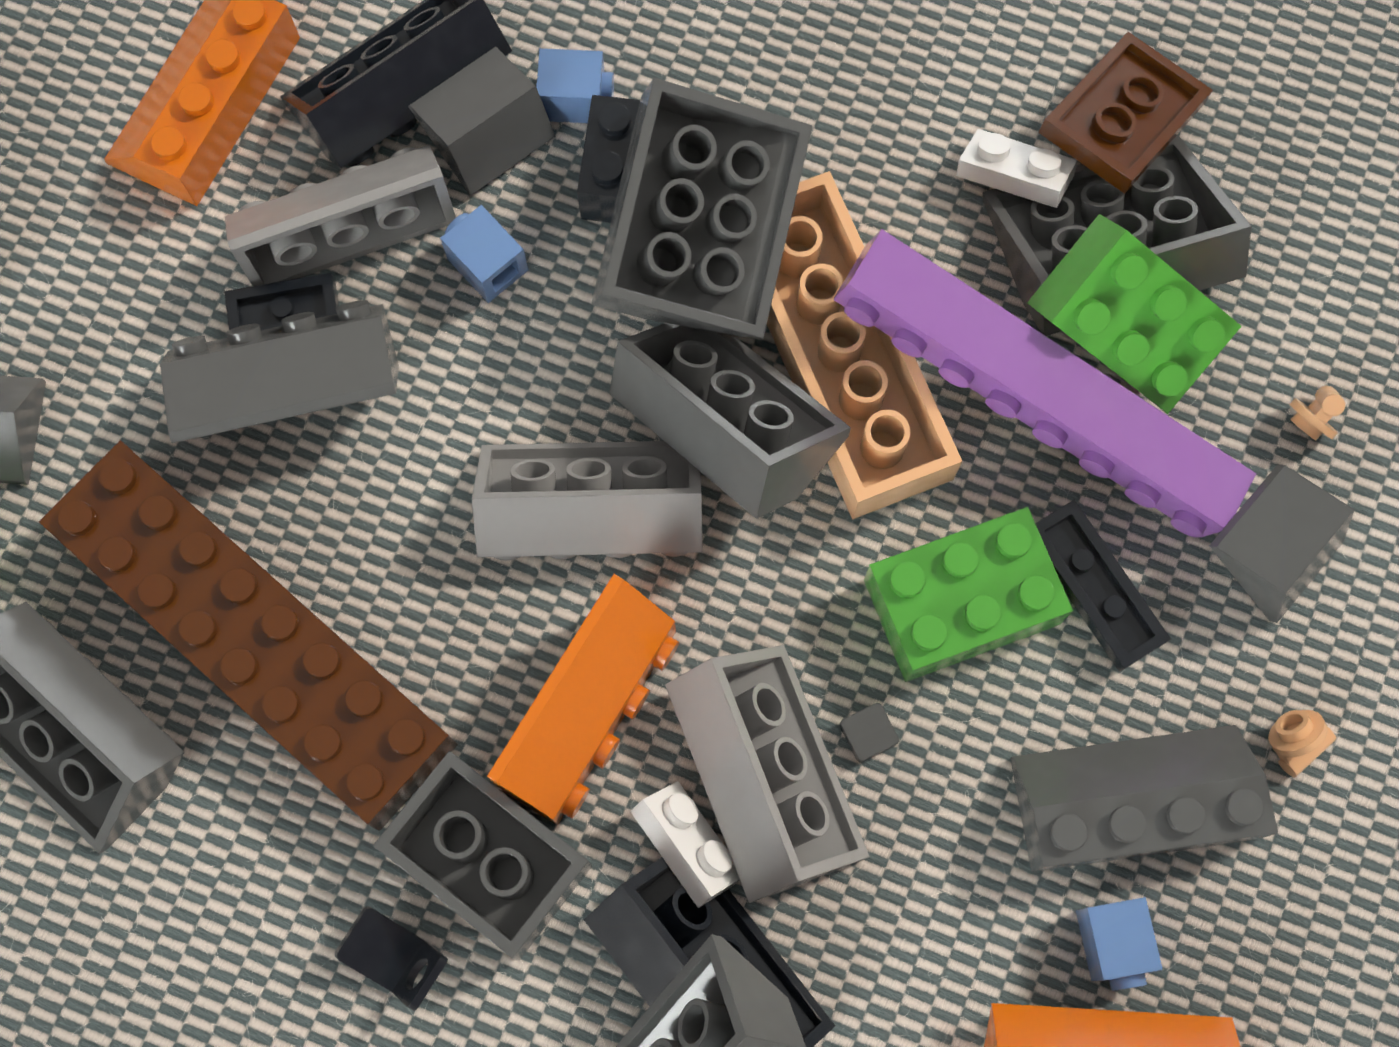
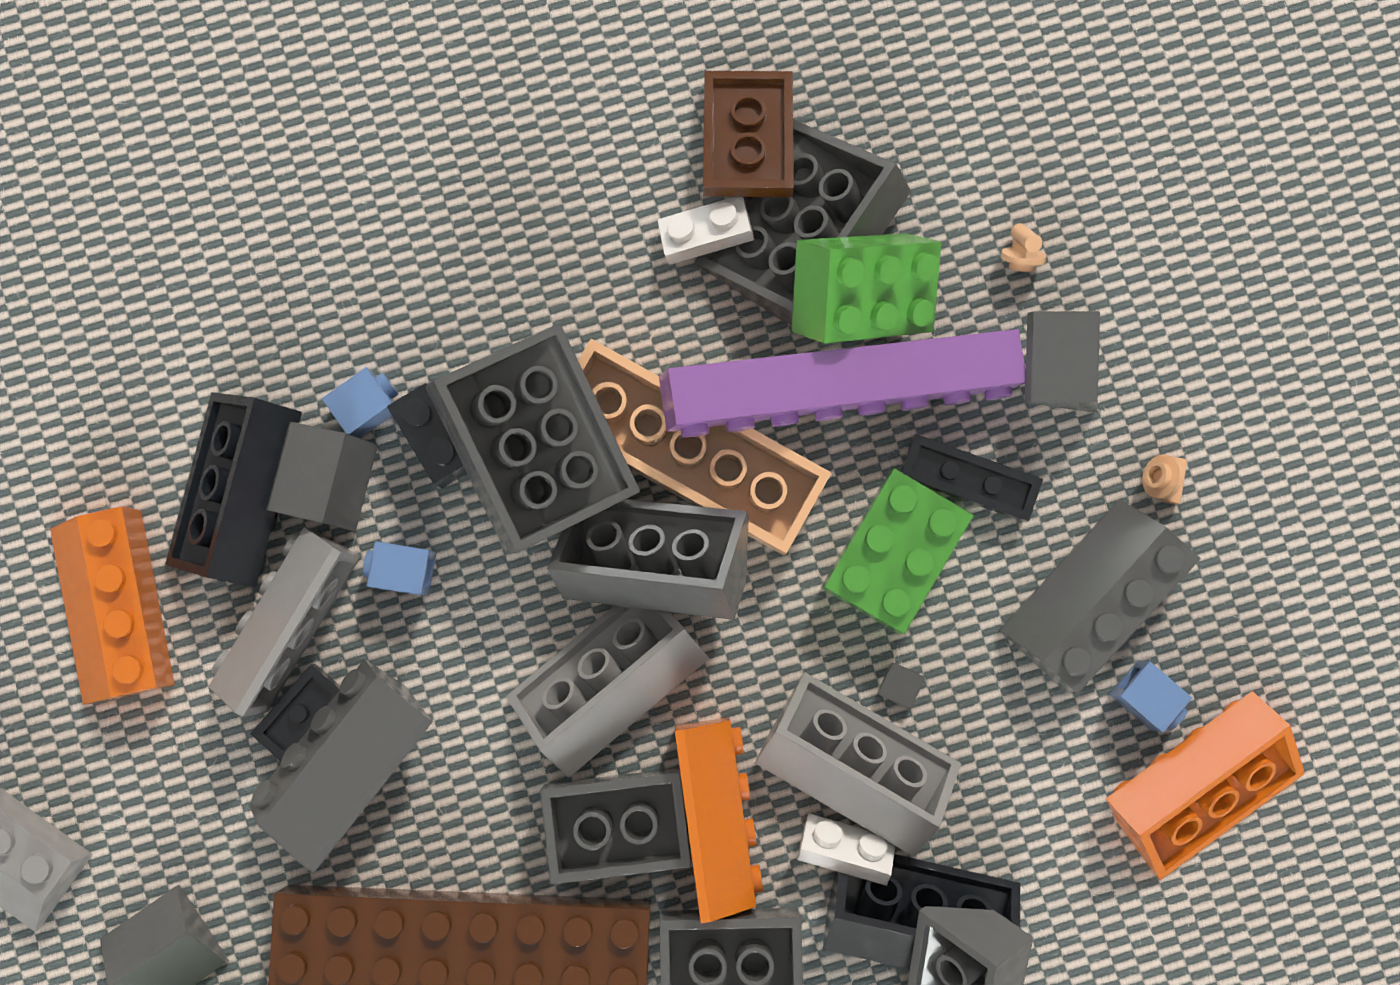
camera: 40 degrees left, 10 degrees up
(478, 631) = (615, 826): none -> dark grey brick

